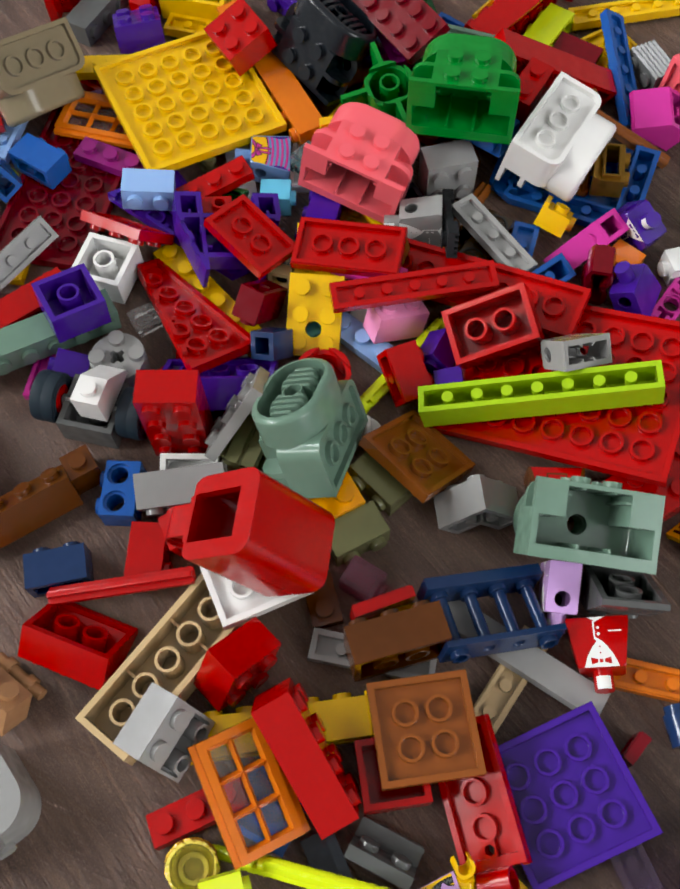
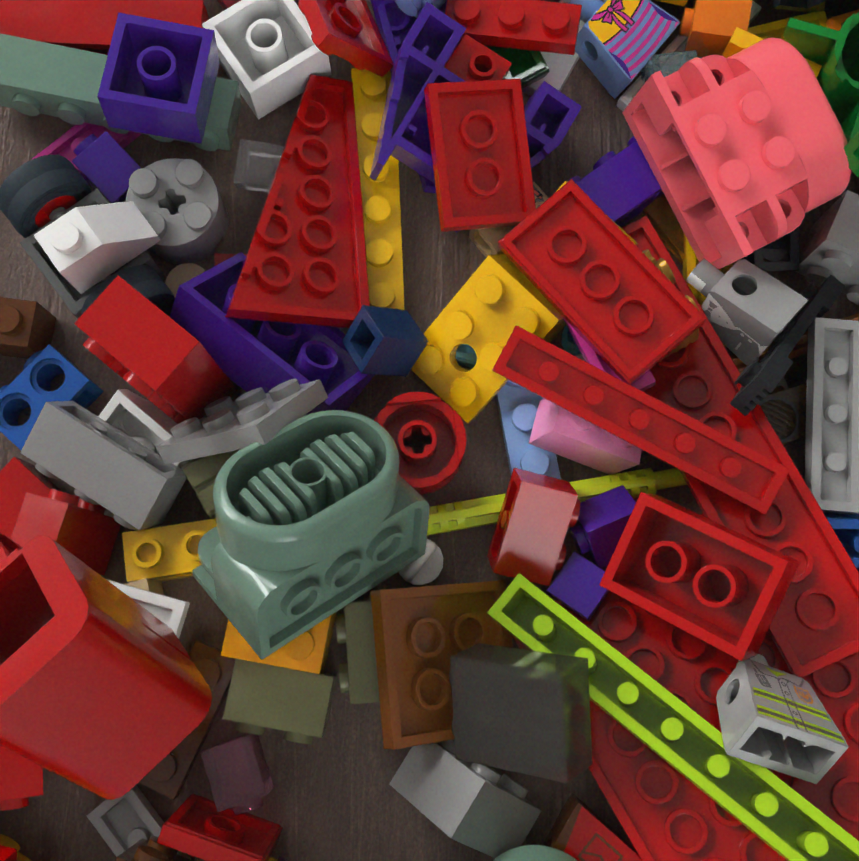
camera: 35 degrees right, 15 degrees up
(259, 302) = (421, 261): dark red brick -> none
(286, 195) = (598, 103): medium azure brick -> none
(467, 434) = (522, 711): none -> clear smoke brick

